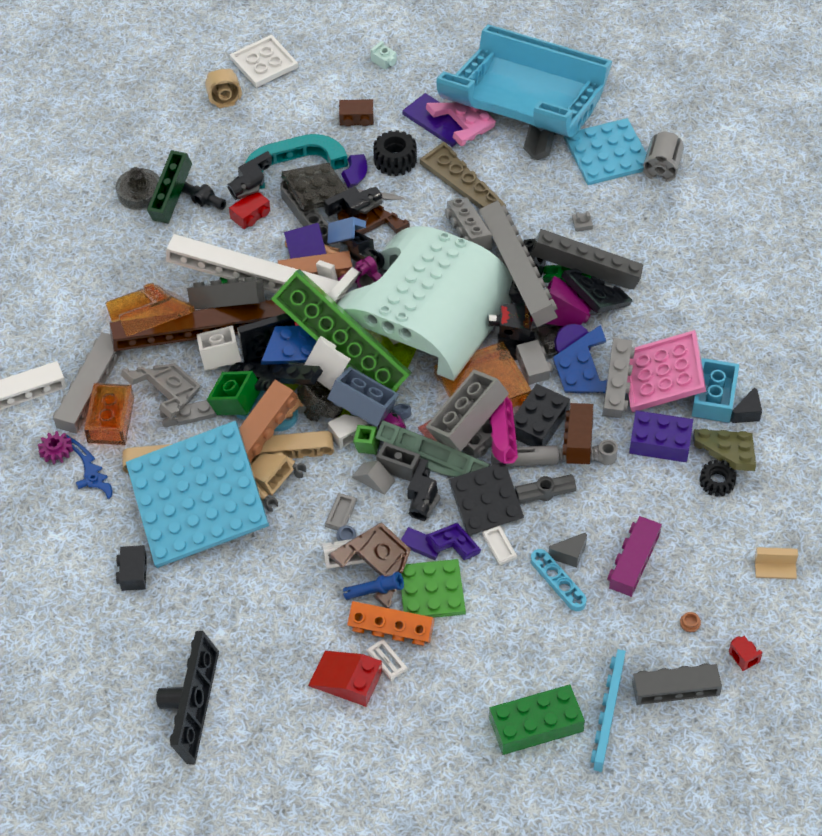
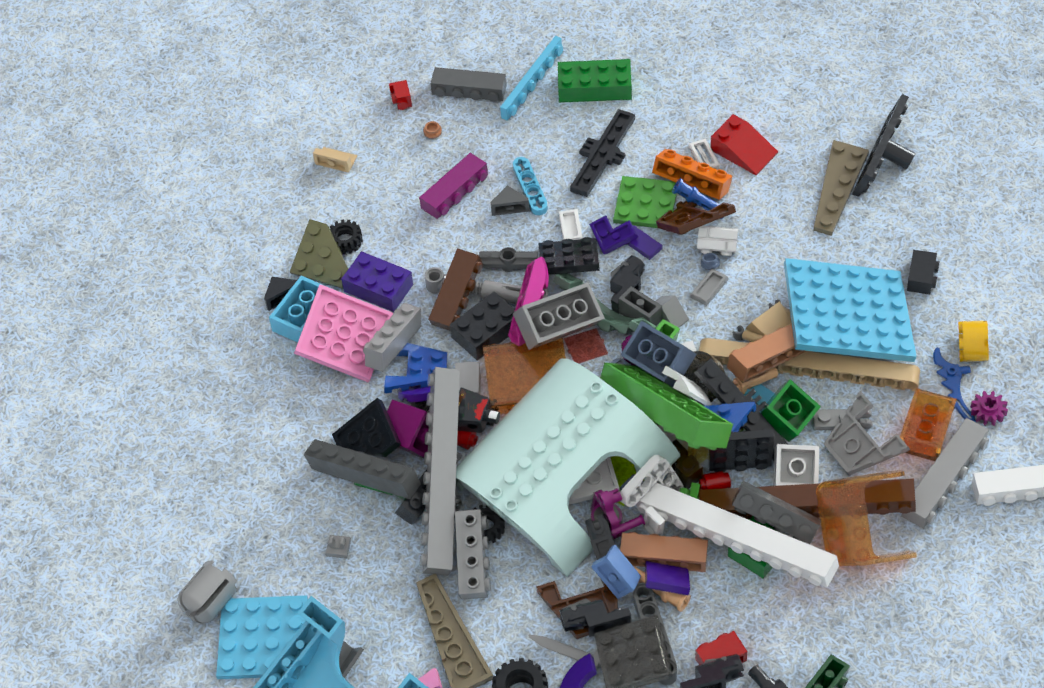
camera: 160 degrees left, 0 degrees up
(74, 499) = (973, 341): none -> yellow brick
(233, 670) = (840, 177): none -> dark tan wing
(496, 635) = (602, 153): none -> black hinge

